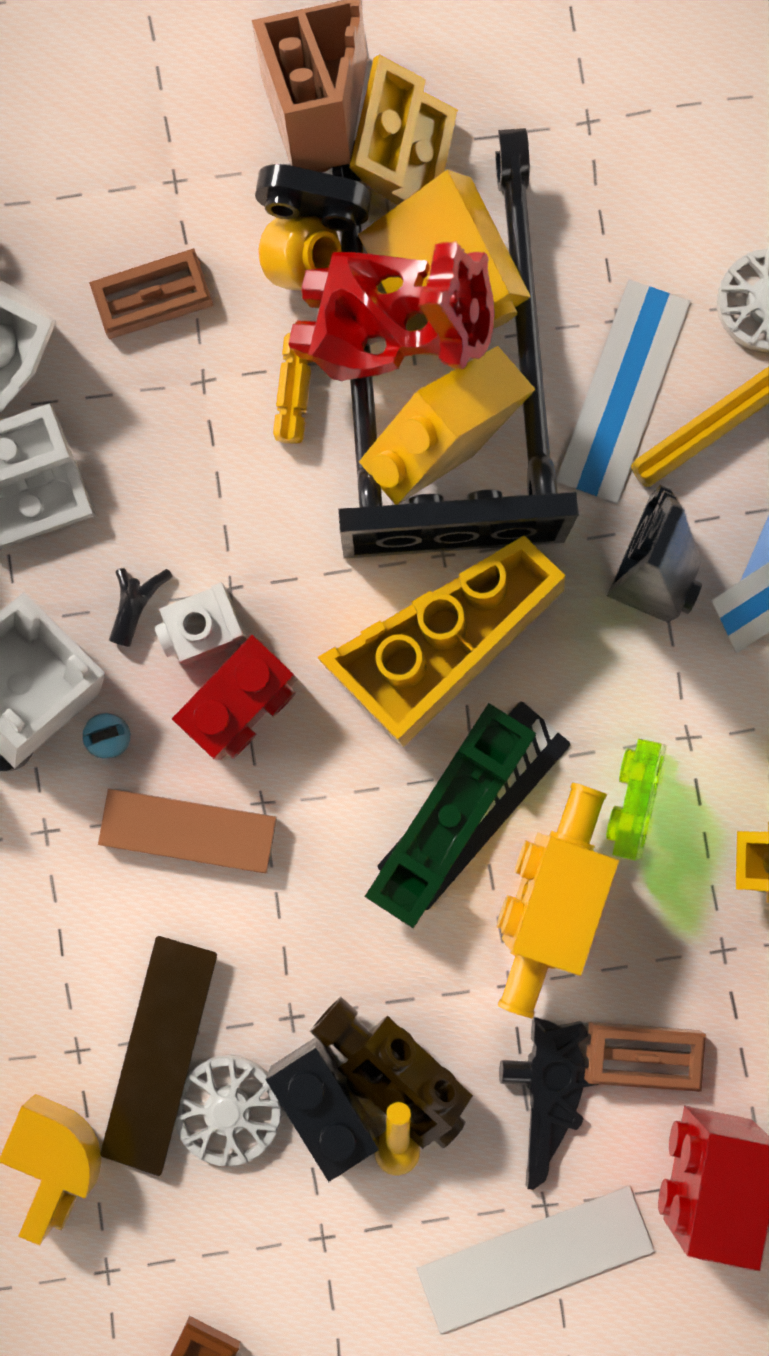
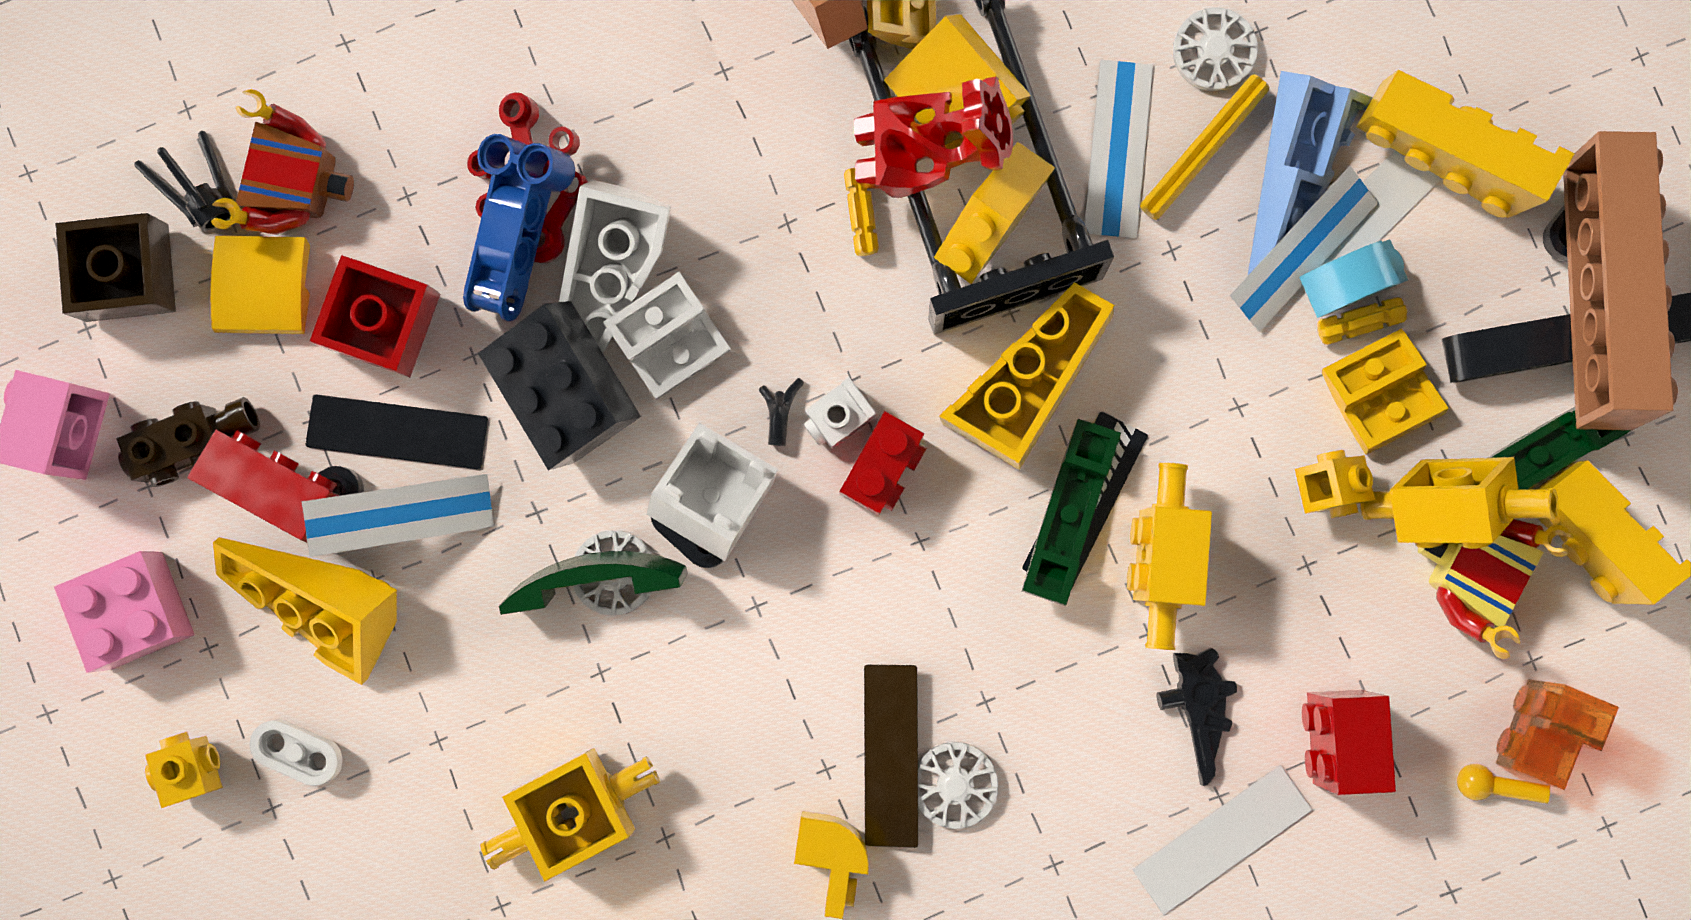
camera: 10 degrees left, 0 degrees up
(108, 747) = (789, 528): medium azure hinge -> none
(157, 313) = (738, 179): nougat tile -> none
(187, 830) = (868, 576): nougat tile -> none
(295, 246) = (838, 101): yellow head -> none
(297, 192) = (831, 61): black plate -> none
(323, 1109) = (1031, 761): black brick -> none
(397, 1151) = (1094, 779): yellow bar -> none
(398, 1073) = (1082, 722): dark brown brick -> none
(598, 1052) = (1231, 666): nougat tile -> none
(633, 822) = (1212, 442): clear neon green plate -> none
(659, 561) = (1182, 275): black wedge -> none

